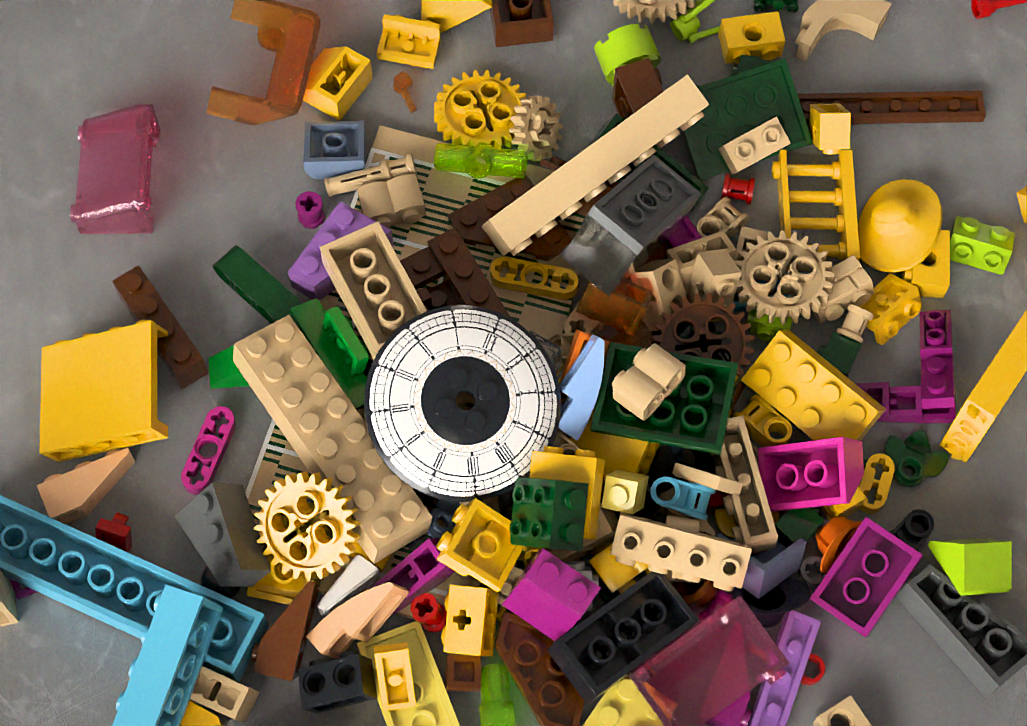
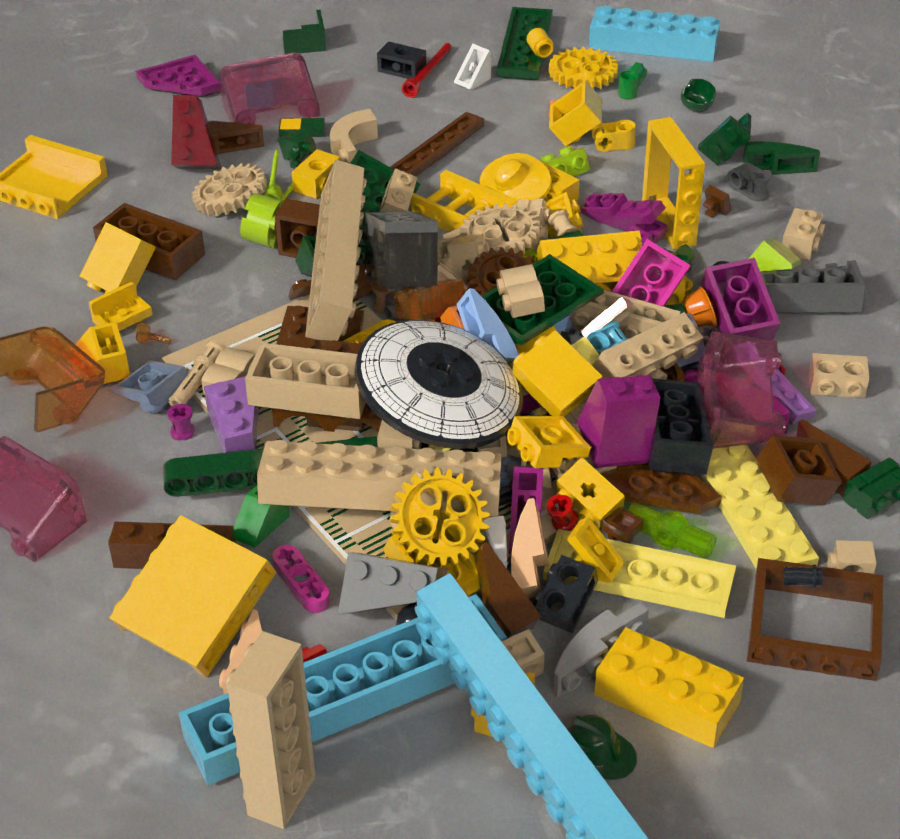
camera: 50 degrees left, 25 degrees down
(336, 345) = (315, 428): green bracket -> none
(458, 111) = (216, 306): yellow gear -> none
(498, 160) = (242, 323): clear neon green piece -> none
(536, 127) = (263, 281): tan gear -> none
(548, 514) = (563, 381): dark green bracket -> none
(830, 127) = (424, 163): yellow brick -> none

